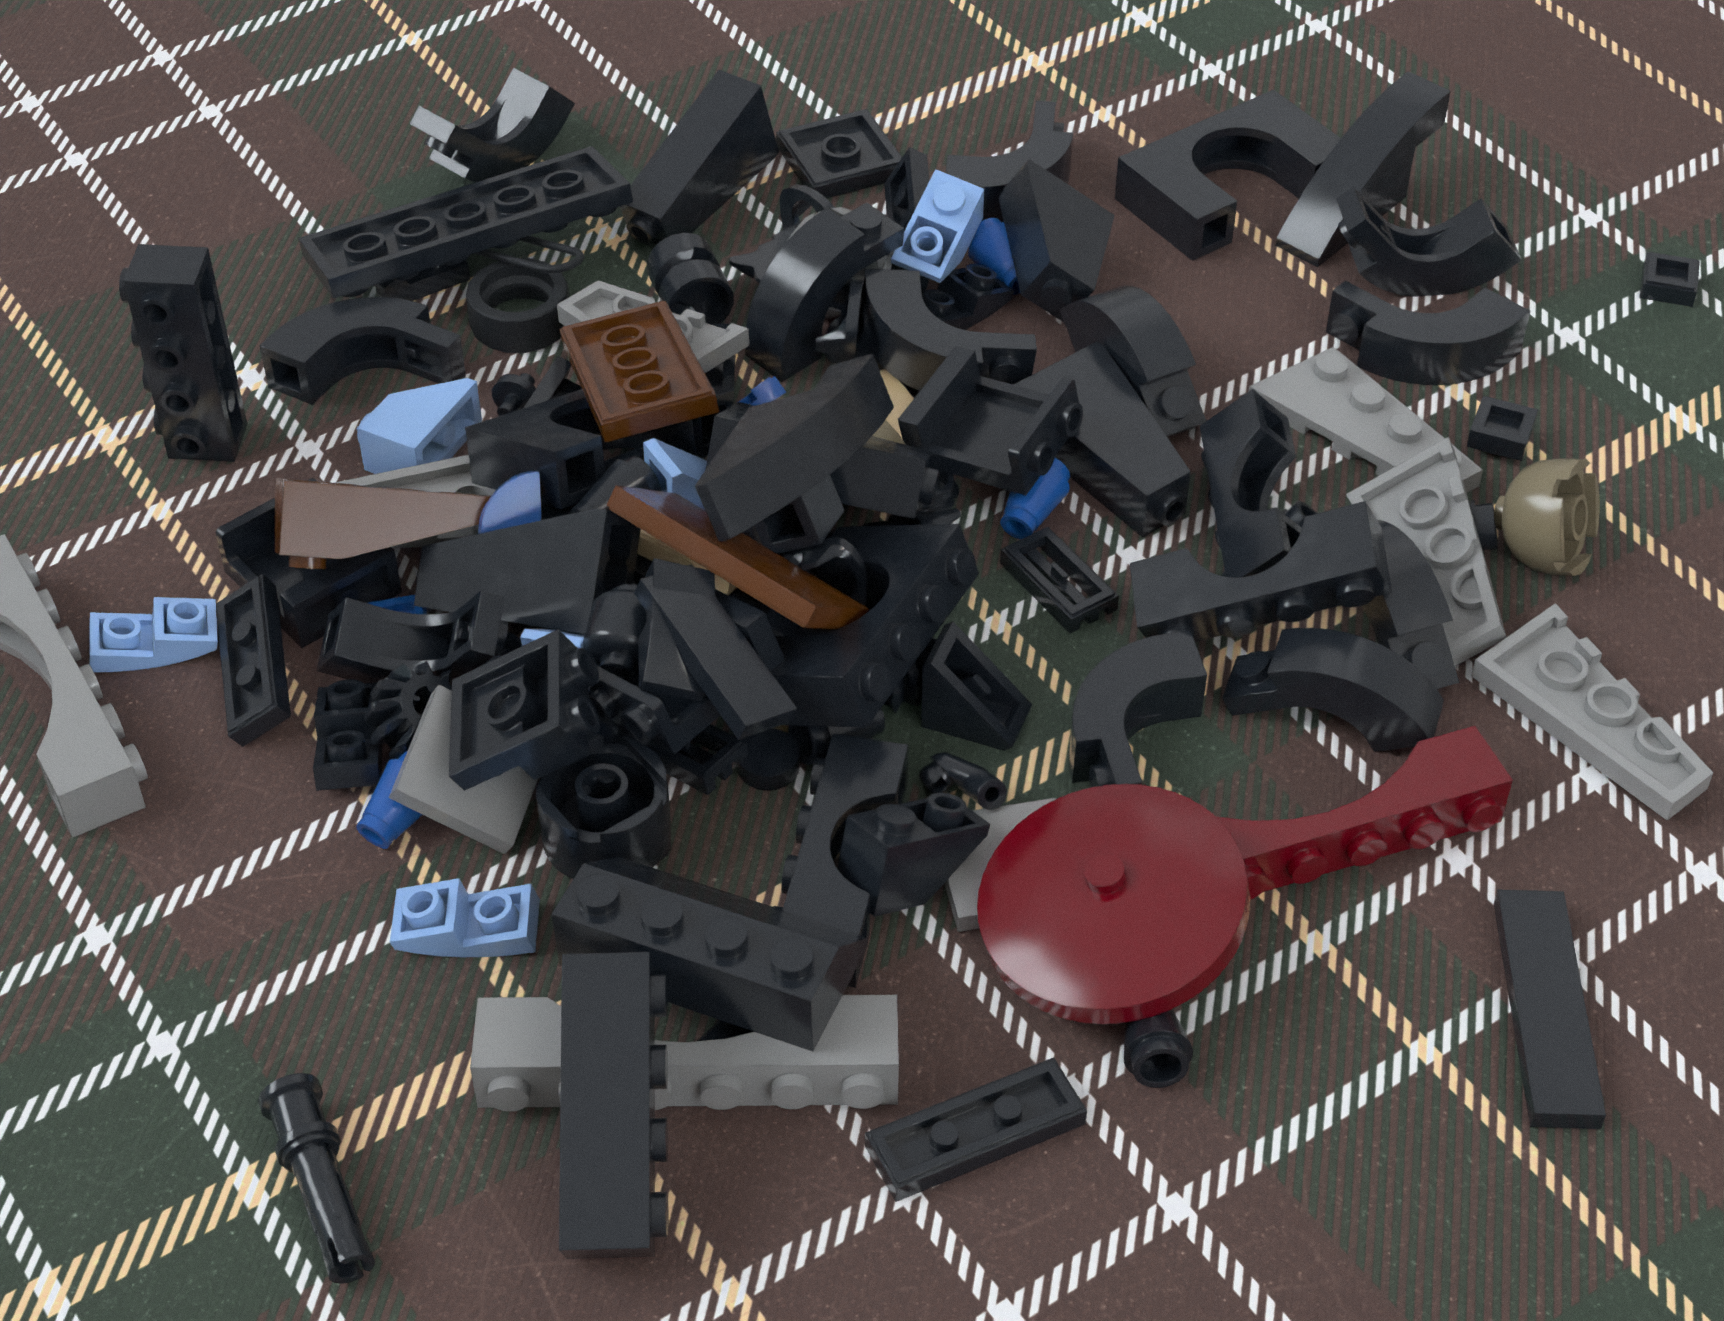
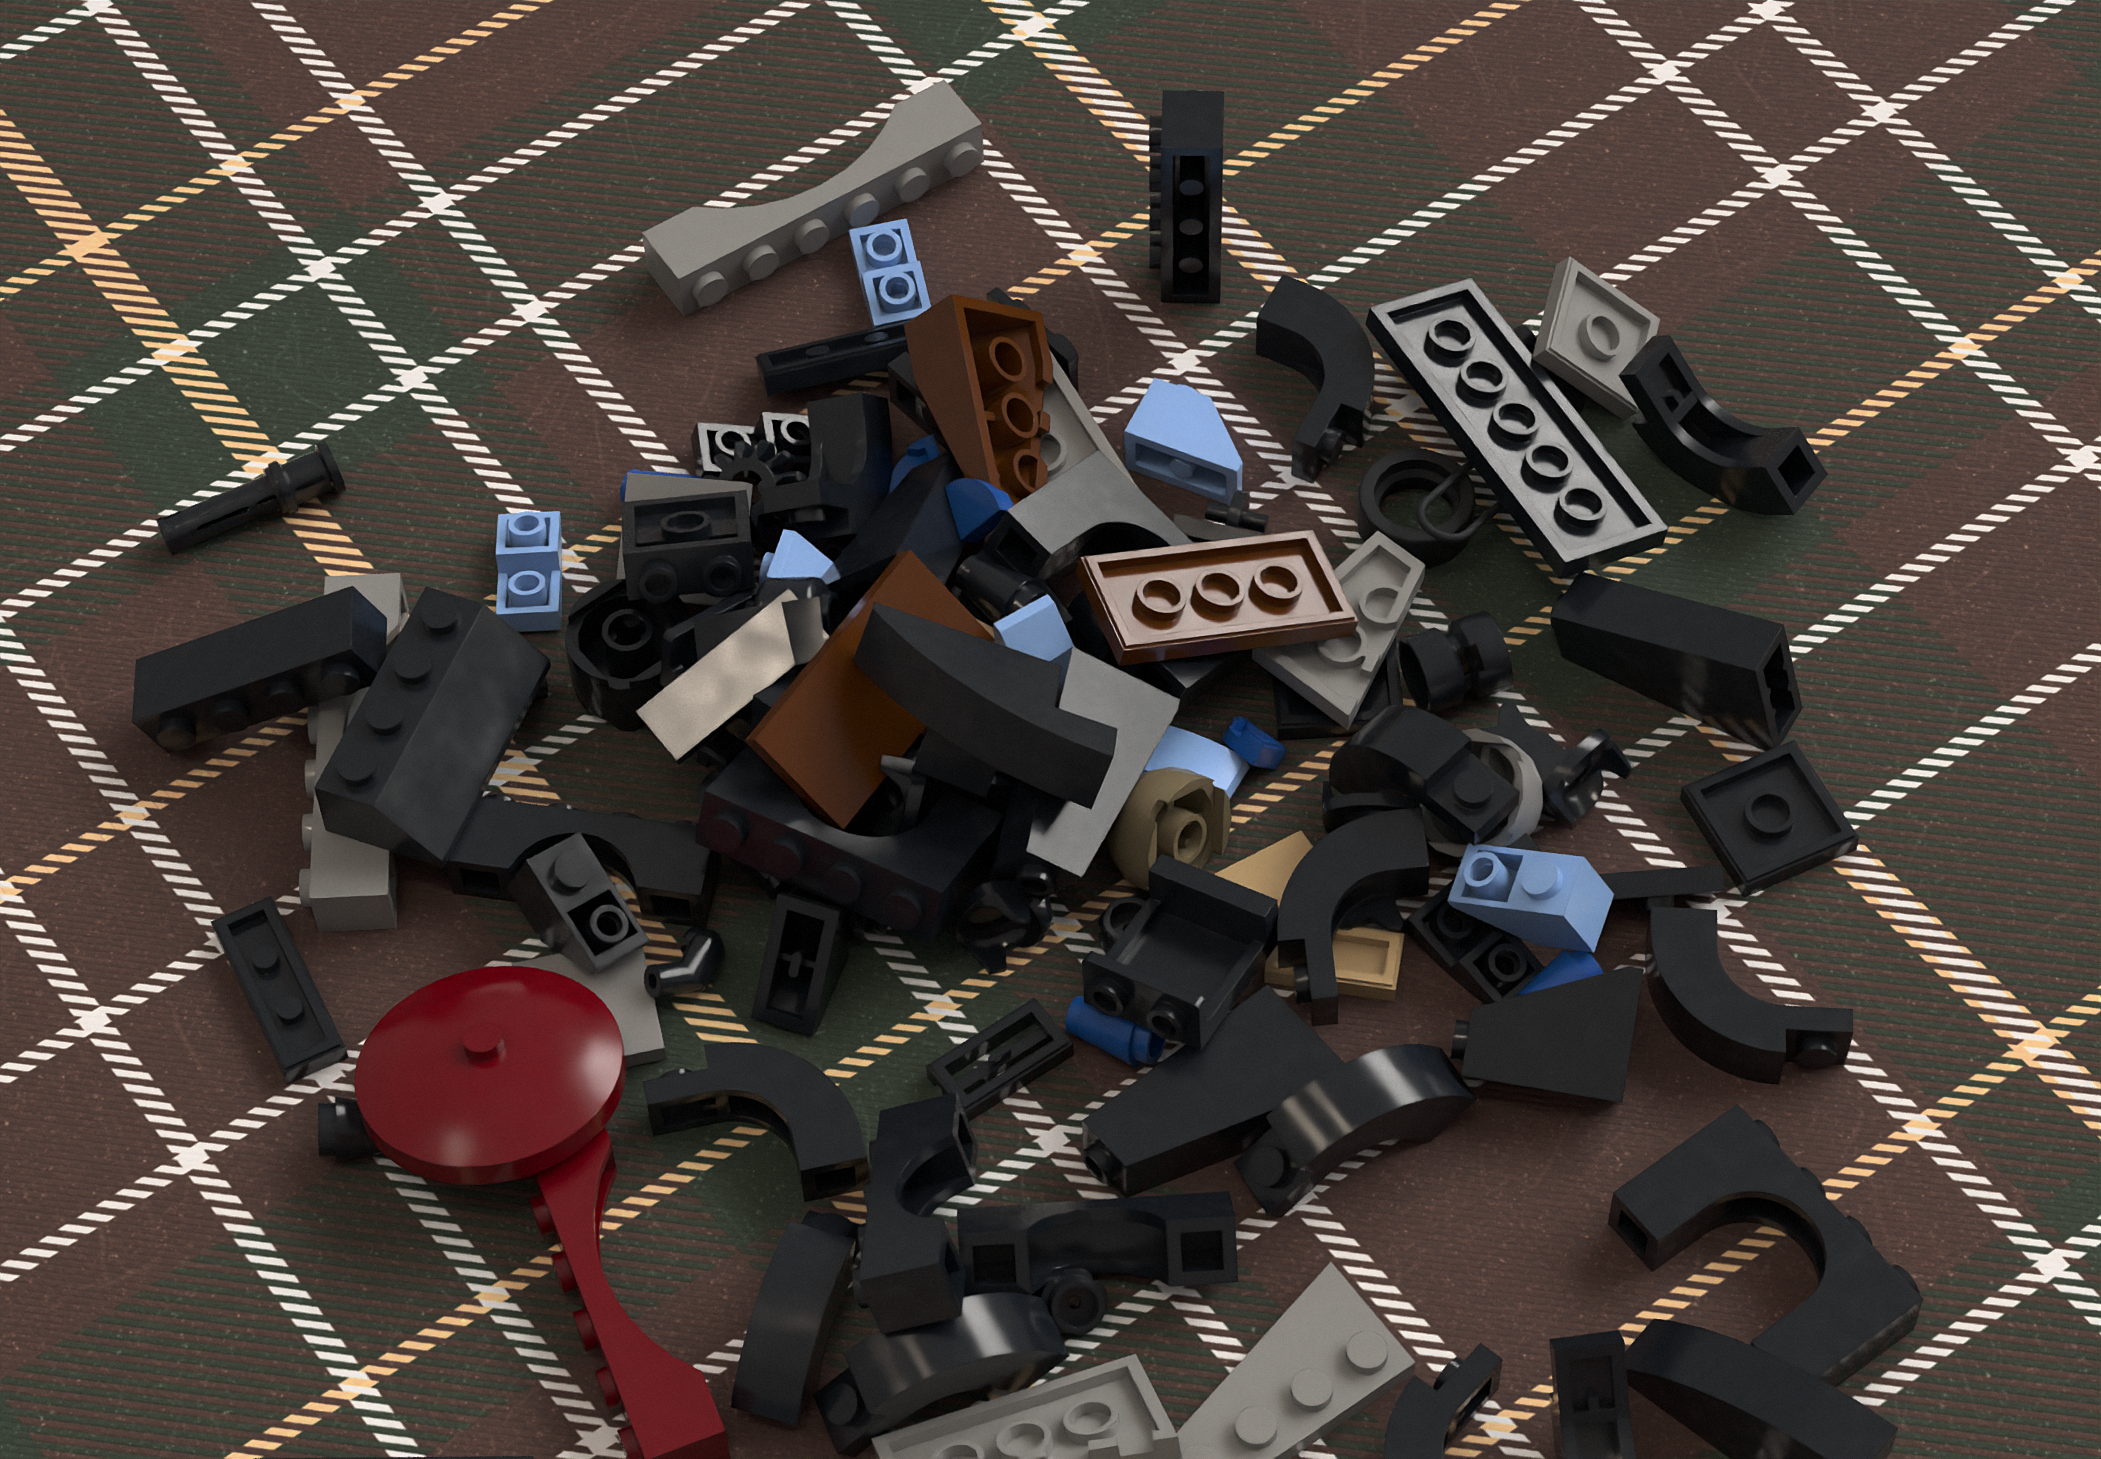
camera: 90 degrees right, 10 degrees up
(369, 184) = (1592, 335): none -> light grey tile

